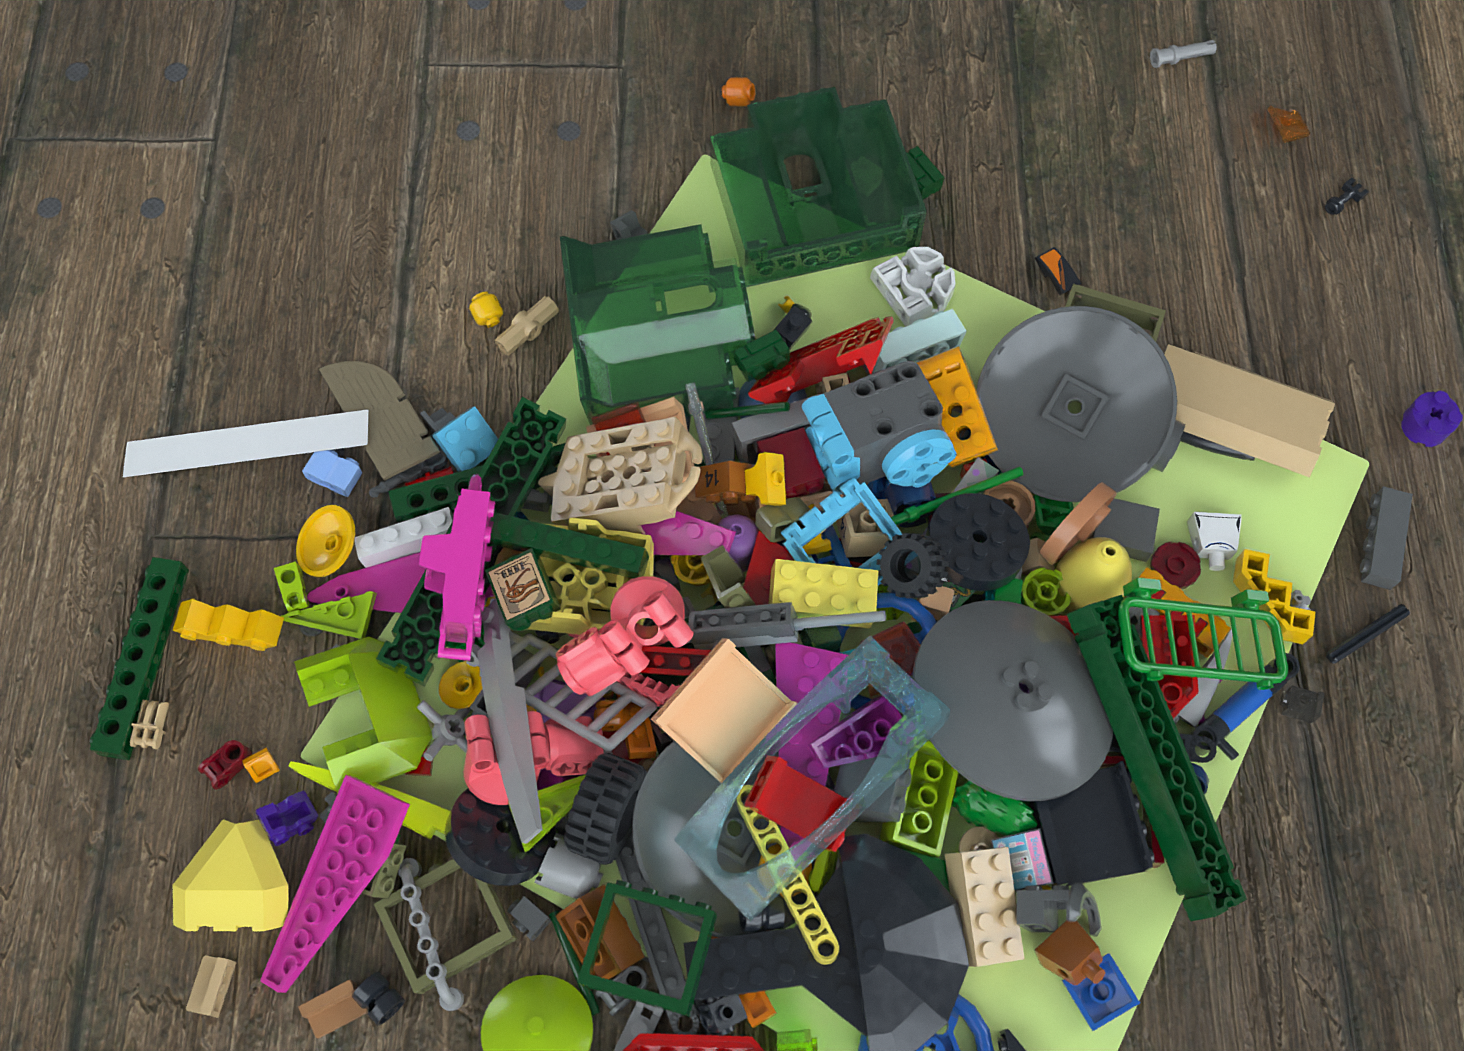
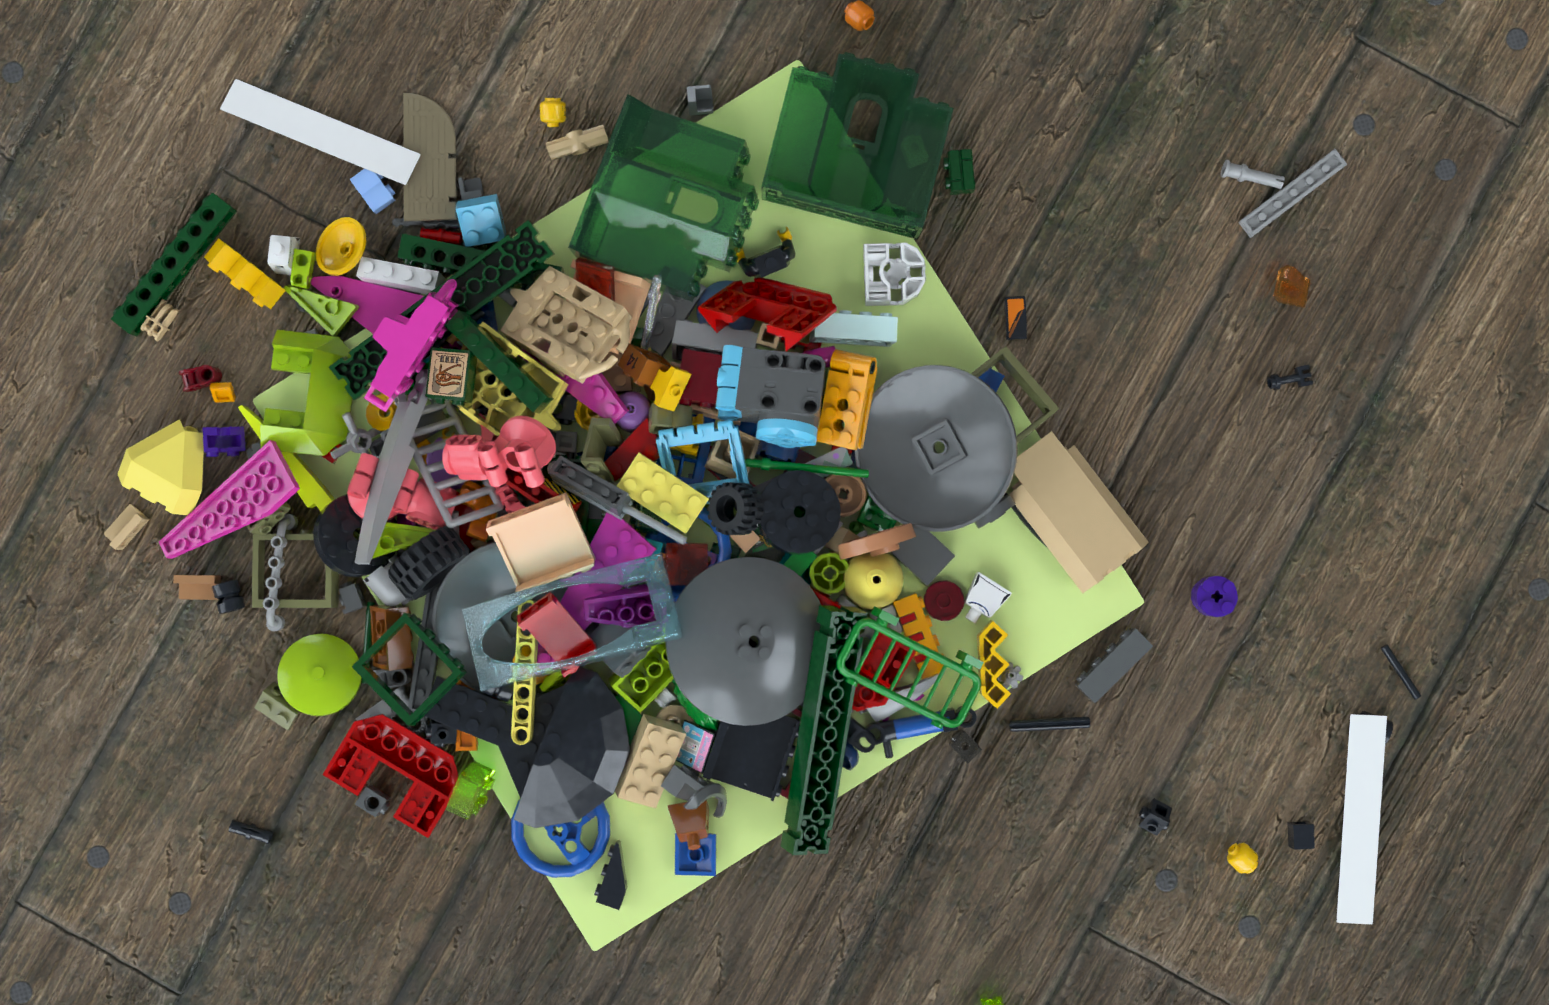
camera: 30 degrees right, 20 degrees up
(261, 577) = (281, 253): none -> white torso
(747, 410) = (693, 316): dark green bar -> none
(762, 356) = (729, 278): dark green brick -> none
(954, 829) = (665, 697): none -> white wheel
(1227, 52) = (1292, 193): none -> light grey tile

